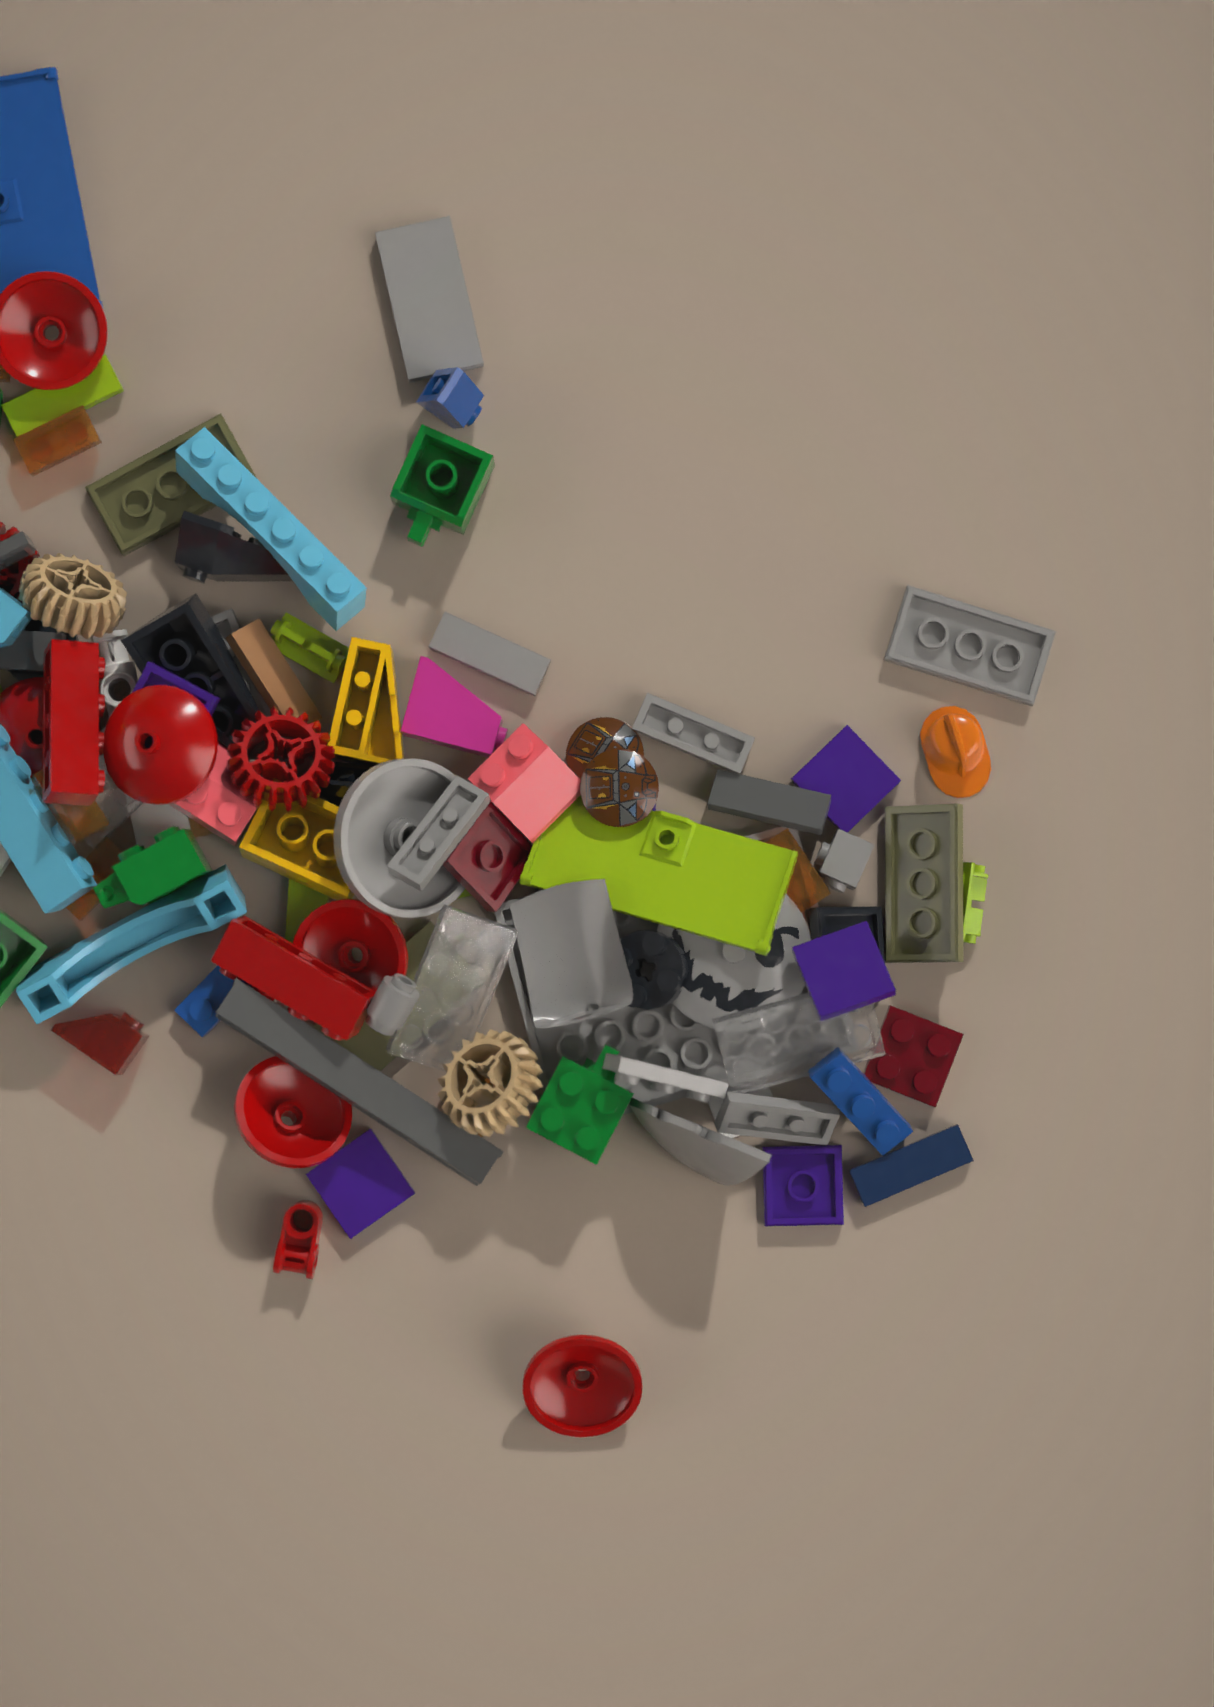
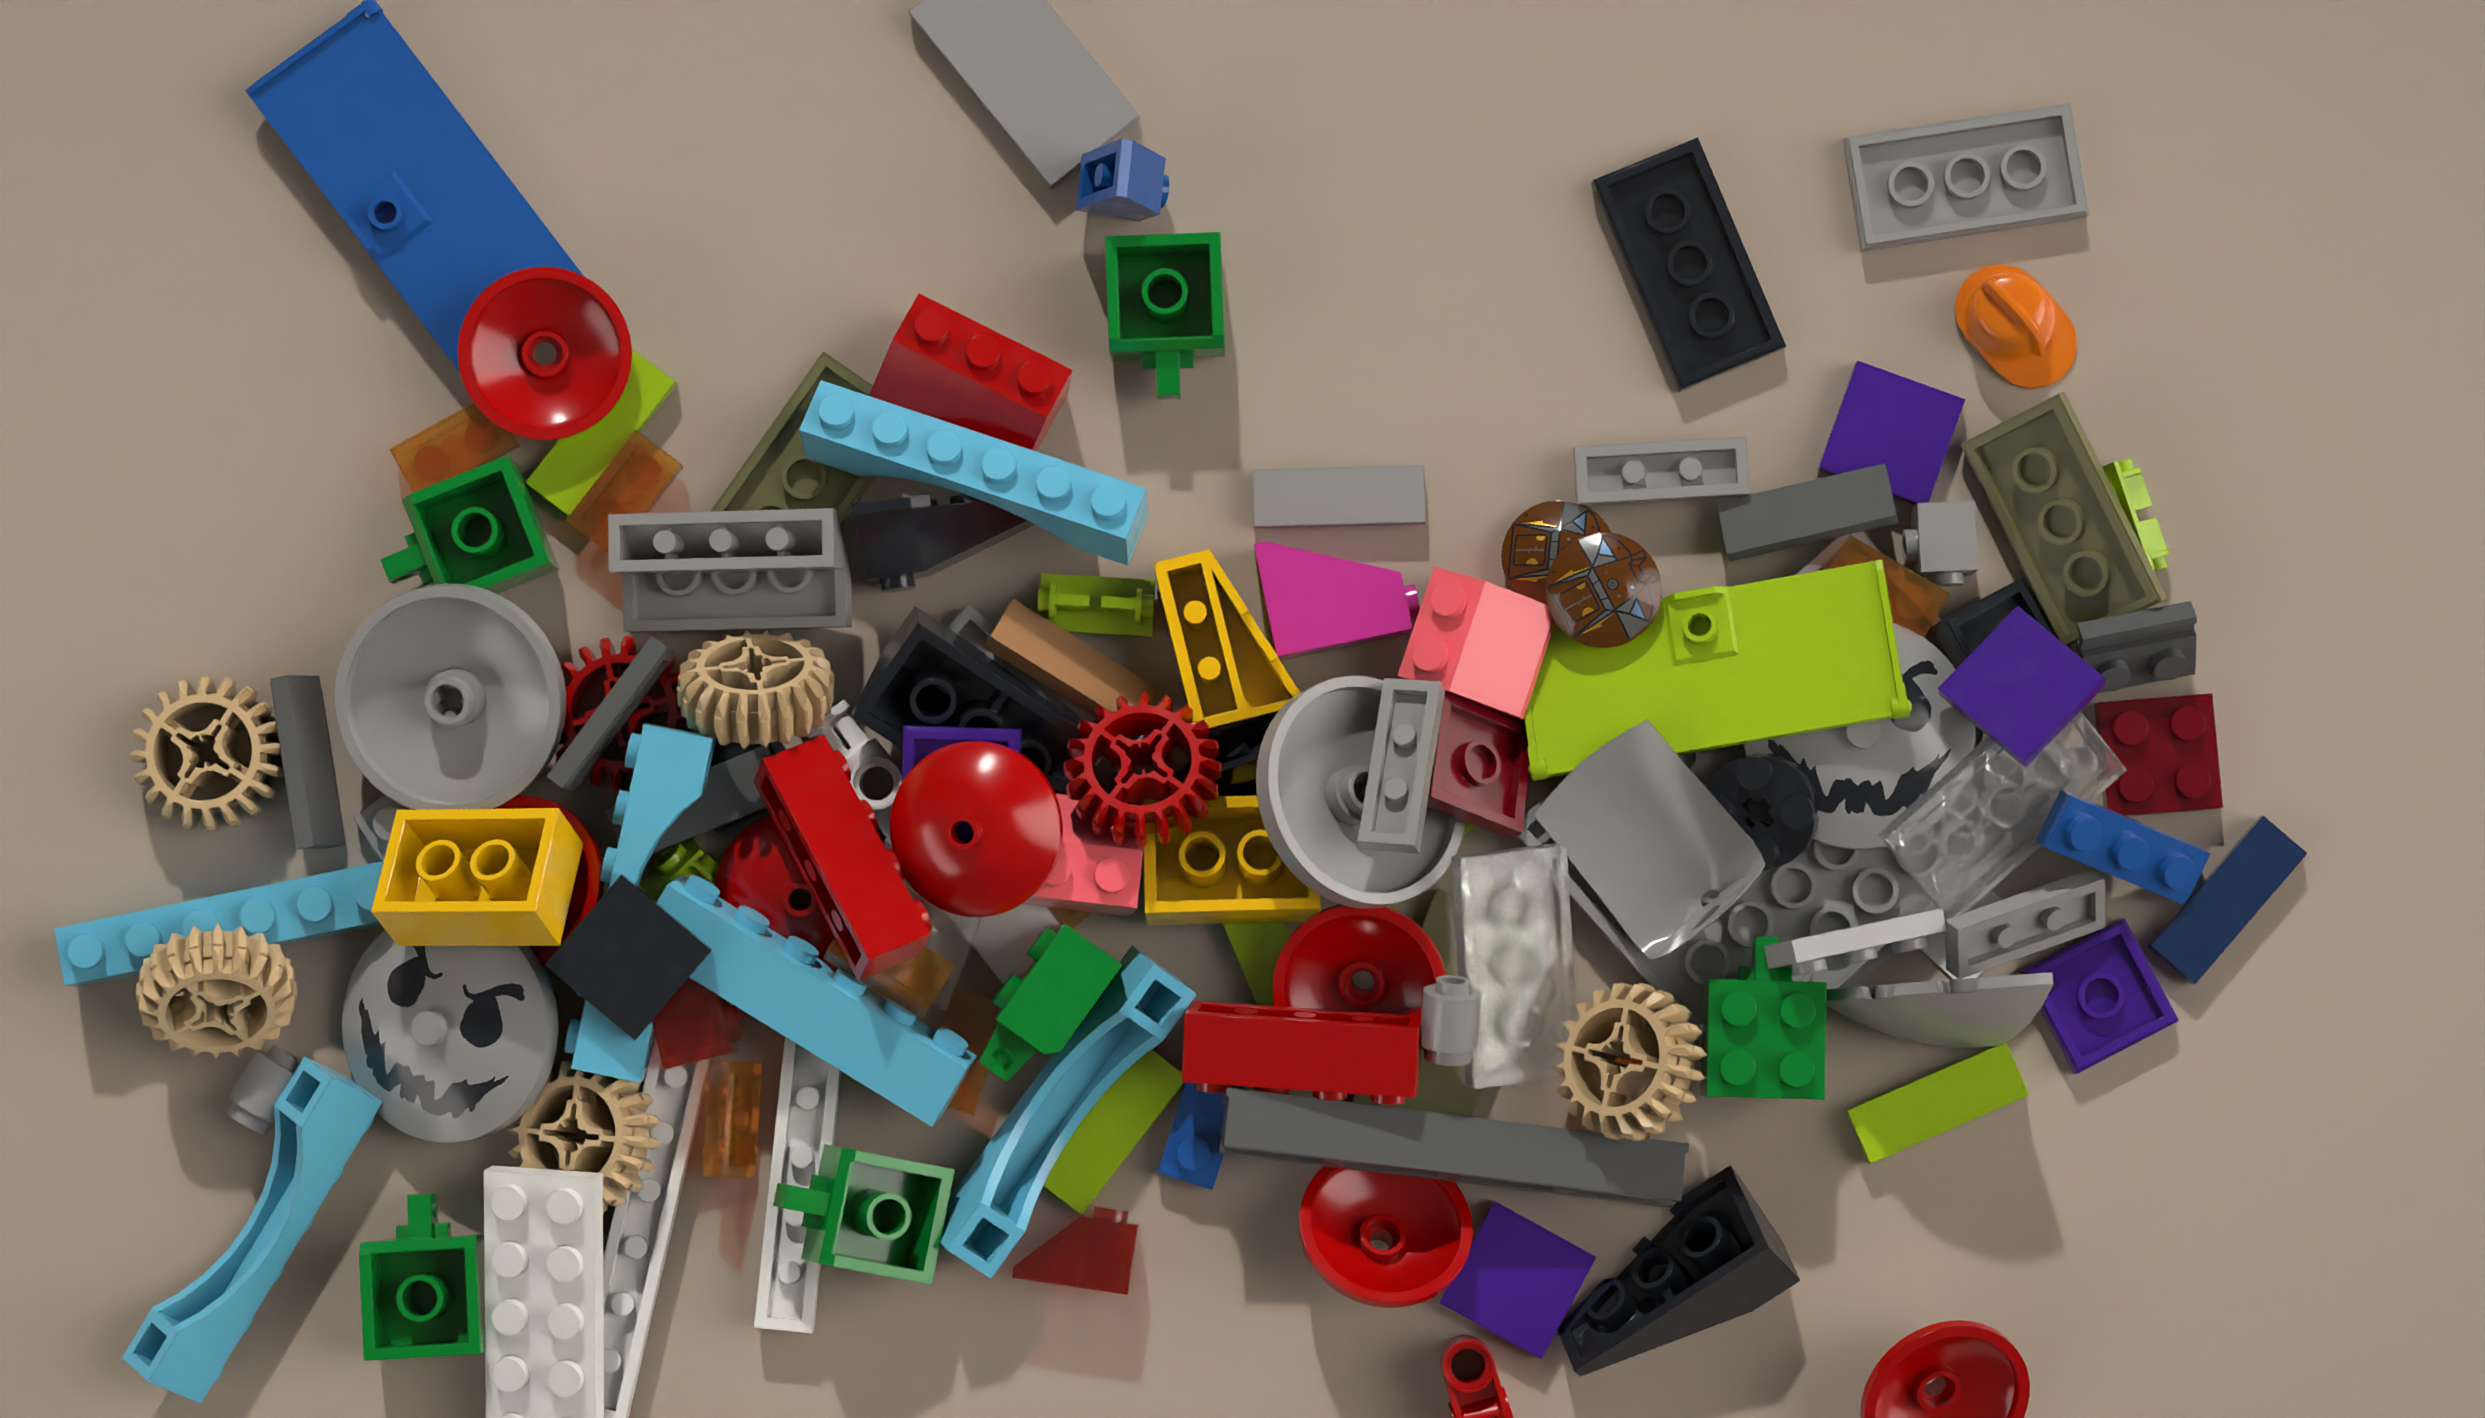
camera: 20 degrees left, 0 degrees up
(96, 517) = (731, 570): none -> light grey slope
(159, 971) = (1112, 1130): none -> lime tile
(299, 471) = (971, 376): none -> red slope
(473, 1234) = (1697, 1272): none -> black wedge
(671, 1201) = (1937, 1102): none -> lime tile
(773, 616) = (1688, 264): none -> black tile
(931, 983) = (2140, 645): none -> dark grey plate

